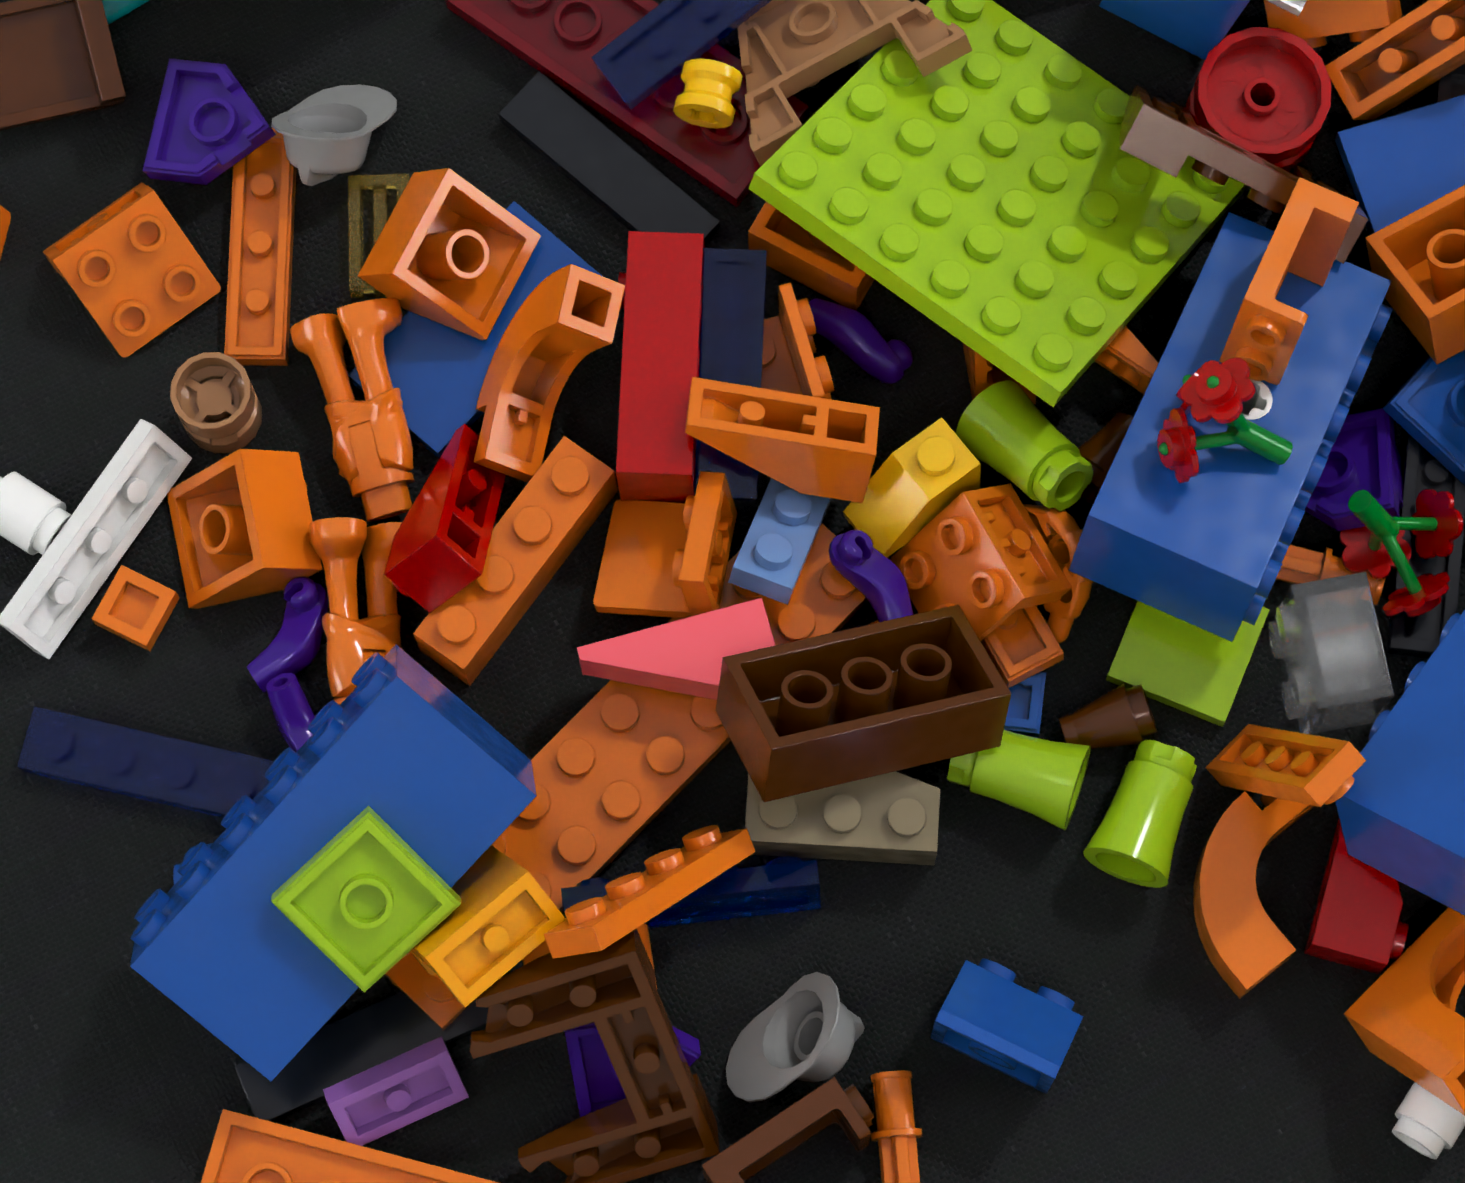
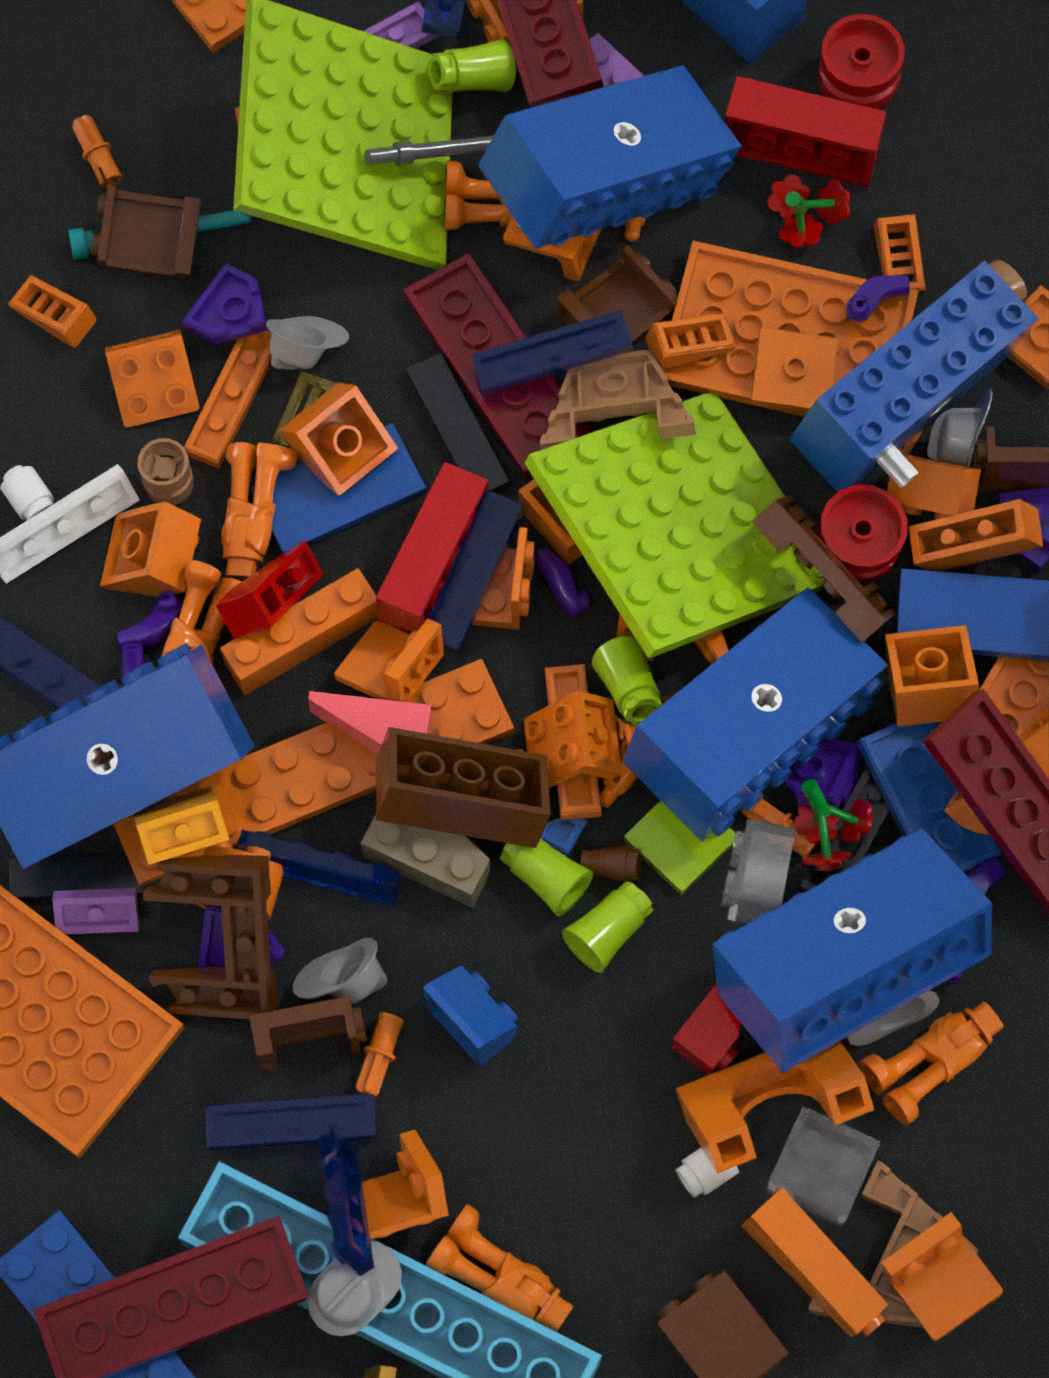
camera: 20 degrees right, 5 degrees down
(135, 608) = (68, 573): orange plate -> none
(366, 899) = (118, 780): lime tile -> none
(539, 350) = (372, 509): orange arch -> none
(641, 896) = (274, 843): orange plate -> none
(707, 93) = (531, 402): yellow wheel -> none
(778, 542) = (470, 669): medium blue plate -> none
(791, 437) = (488, 618): orange slope -> none
(871, 574) = (505, 718): dark purple arm -> none
(914, 487) = (551, 678): yellow slope -> none
(1218, 393) = (735, 681): red plant -> none
(1227, 908) = (647, 972): orange arch -> none
(1287, 765) = (698, 923): orange plate -> none
(1305, 246) = (835, 613): orange panel -> none

